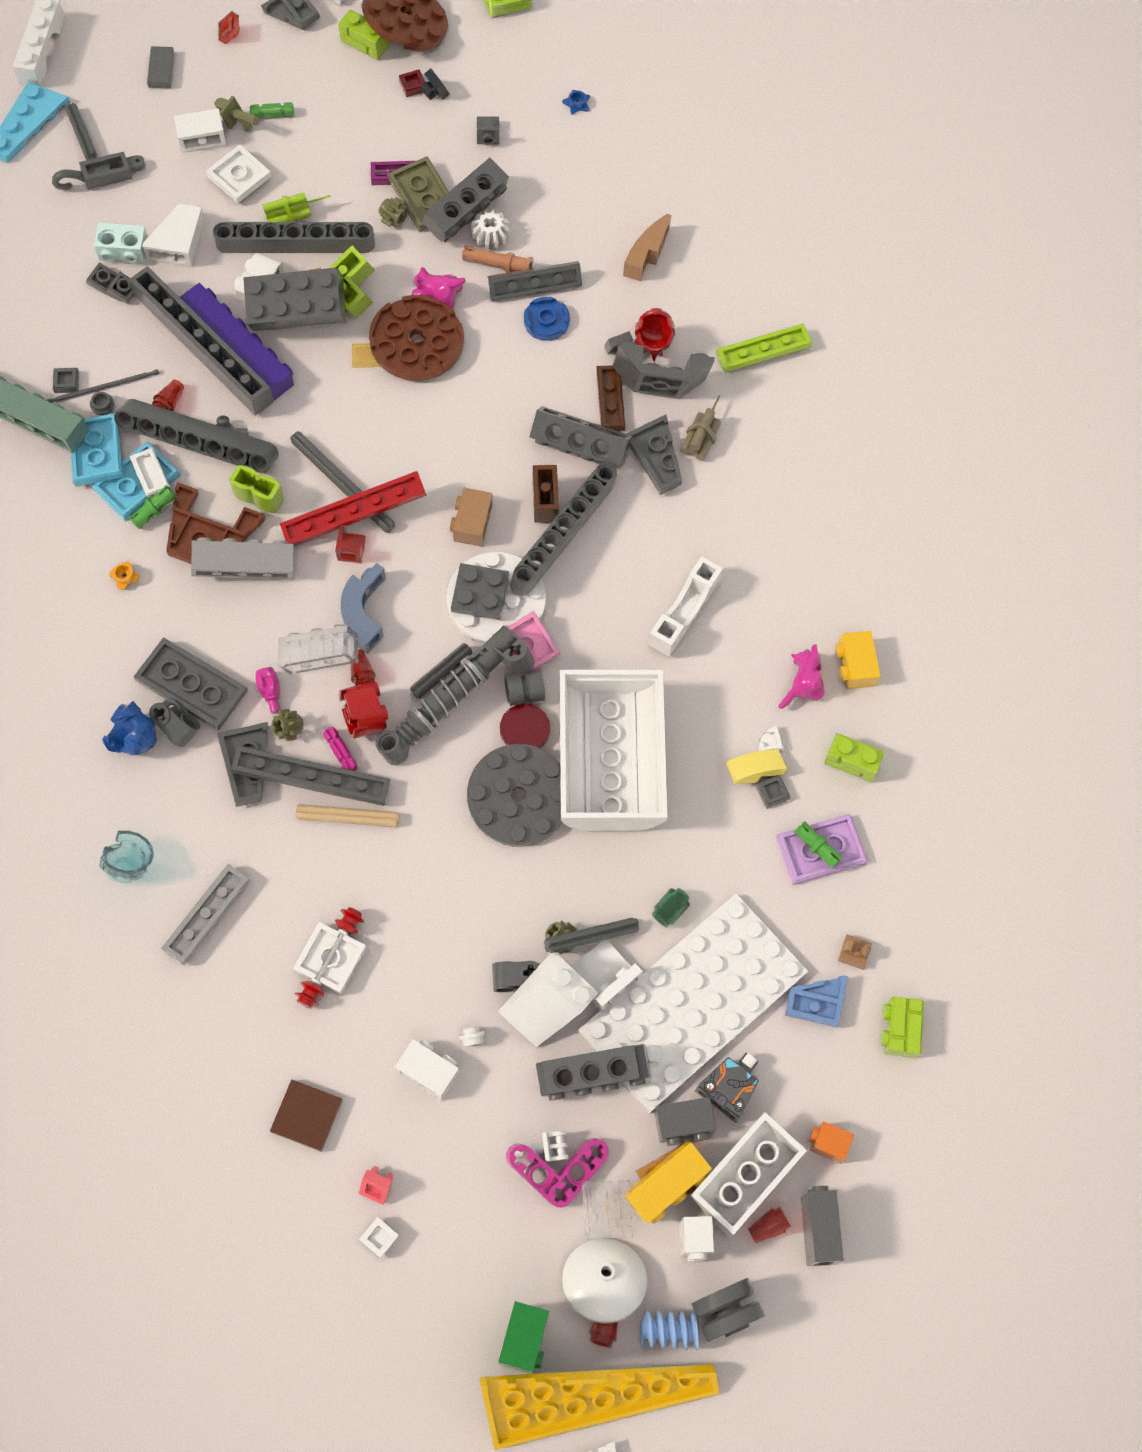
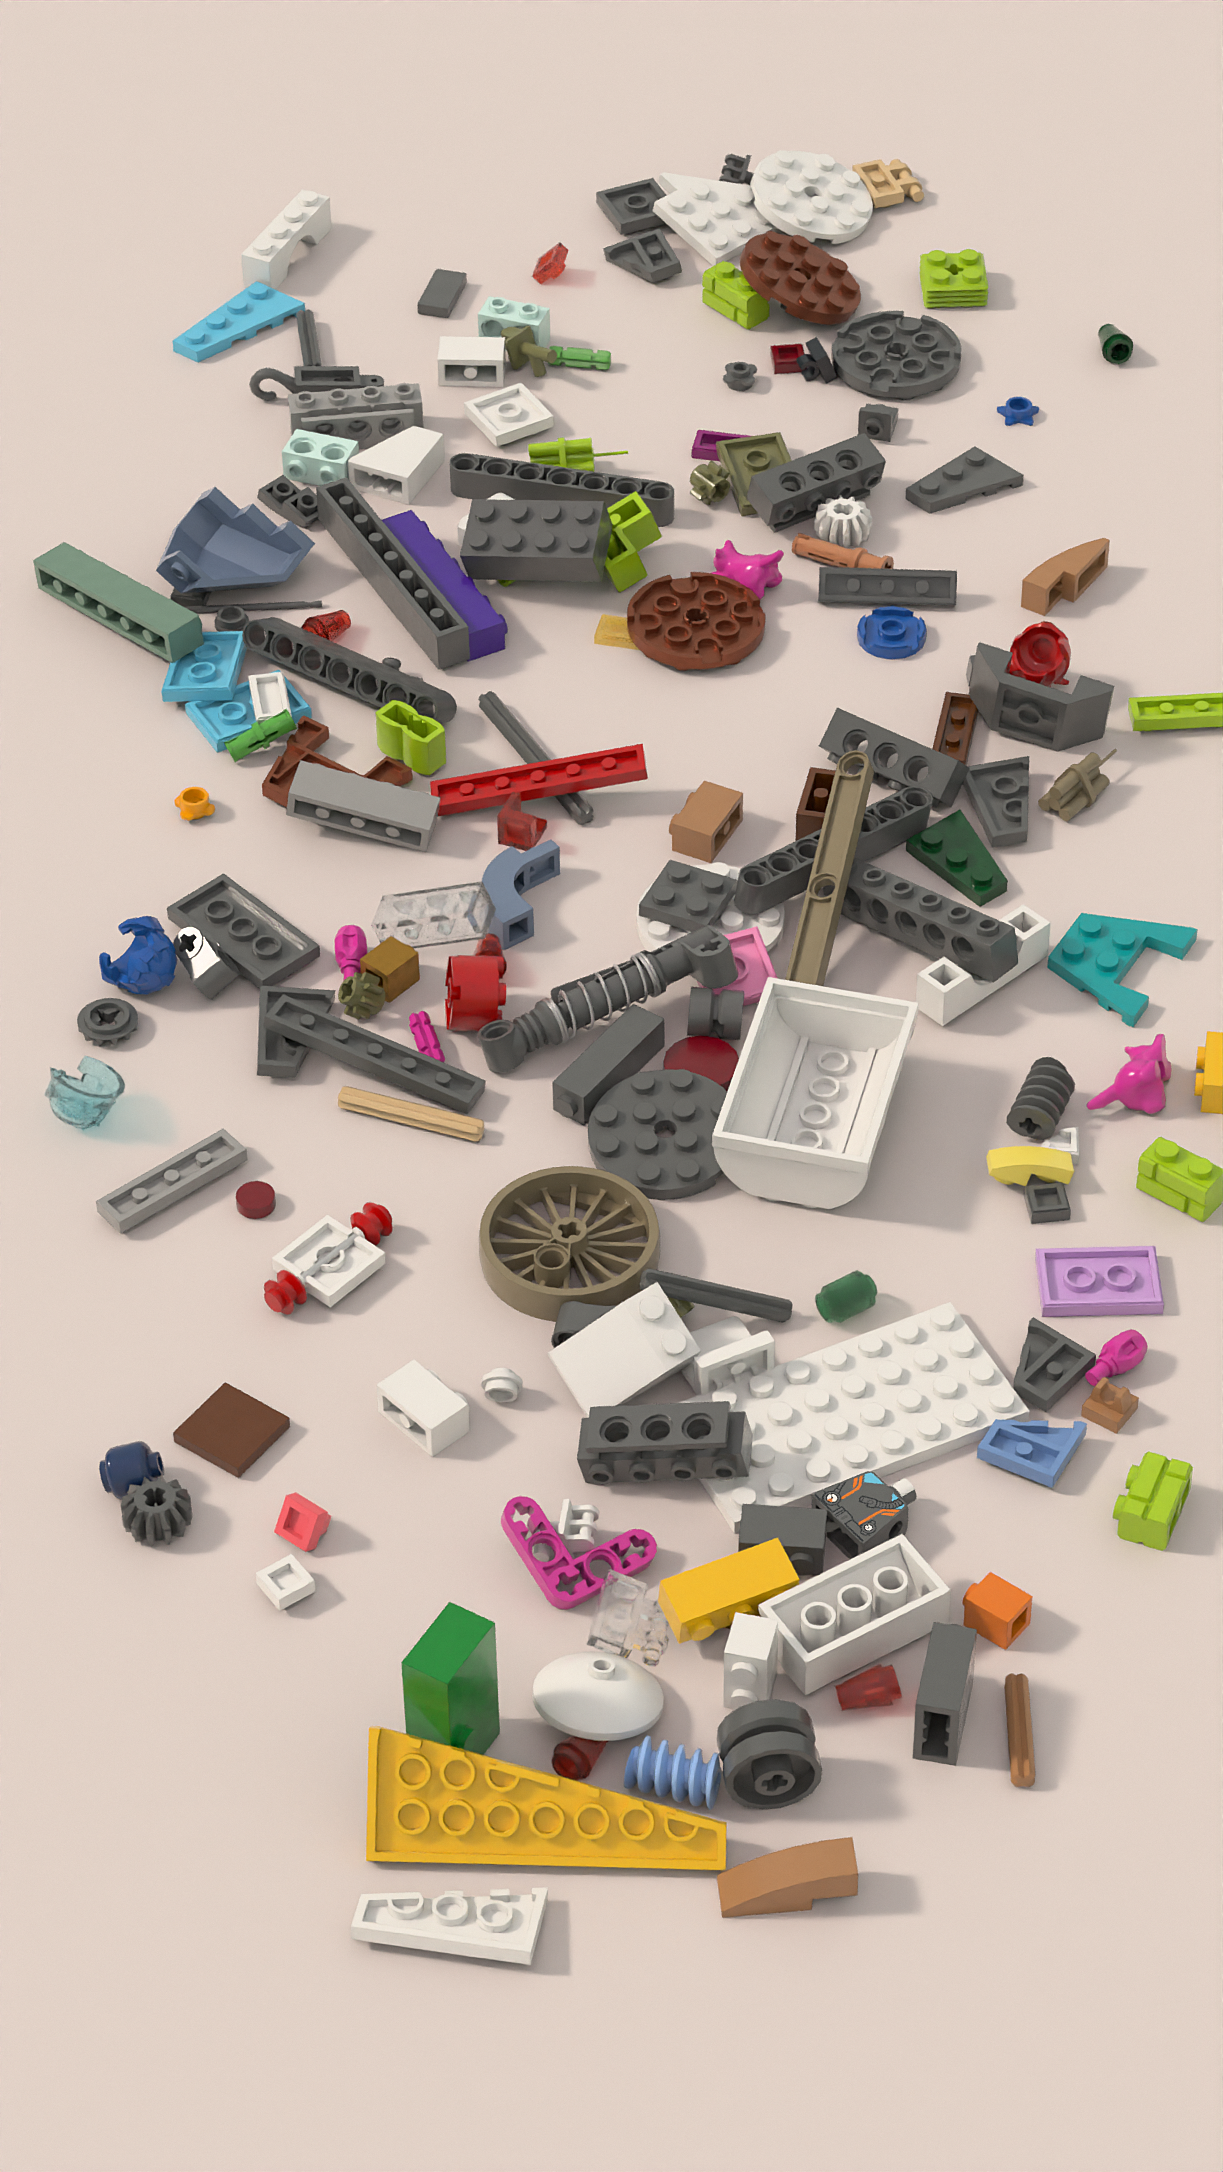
camera: 20 degrees right, 25 degrees down
(81, 344) = (230, 548): none -> sand blue panel
(119, 772) = (107, 1011): none -> dark grey gear
(128, 190) = (358, 414): none -> light grey brick
(212, 87) = (502, 313): none -> light aqua brick
(252, 1173) = (128, 1466): none -> dark blue head
(265, 914) = (255, 1199): none -> dark red tile
(269, 1208) = (156, 1510): none -> dark grey gear
(299, 694) = (395, 966): none -> pearl gold brick
(385, 106) = (740, 376): none -> dark grey plate
(465, 745) = (607, 1061): none -> dark grey brick
(483, 86) = (871, 349): none -> dark grey plate
(491, 858) = (568, 1241): none -> dark tan piece
(557, 171) = (960, 478): none -> dark grey wing
(572, 555) = (830, 867): none -> dark tan beam
(626, 30) = (1115, 344): none -> dark green cone
(636, 578) = (928, 921): none -> dark grey brick
(642, 509) = (959, 858): none -> dark green wing
(749, 711) = (1041, 1099): none -> dark grey piece
(752, 571) = (1102, 951): none -> teal wing
(761, 1395) = (789, 1879): none -> medium nougat slope
(810, 930) = (1049, 1365): none -> dark grey wing
(818, 844) = (1092, 1264): bright green pin -> none
(851, 913) = (1118, 1356): none -> dark pink piece
(867, 1231) = (1019, 1730): none -> medium nougat axle

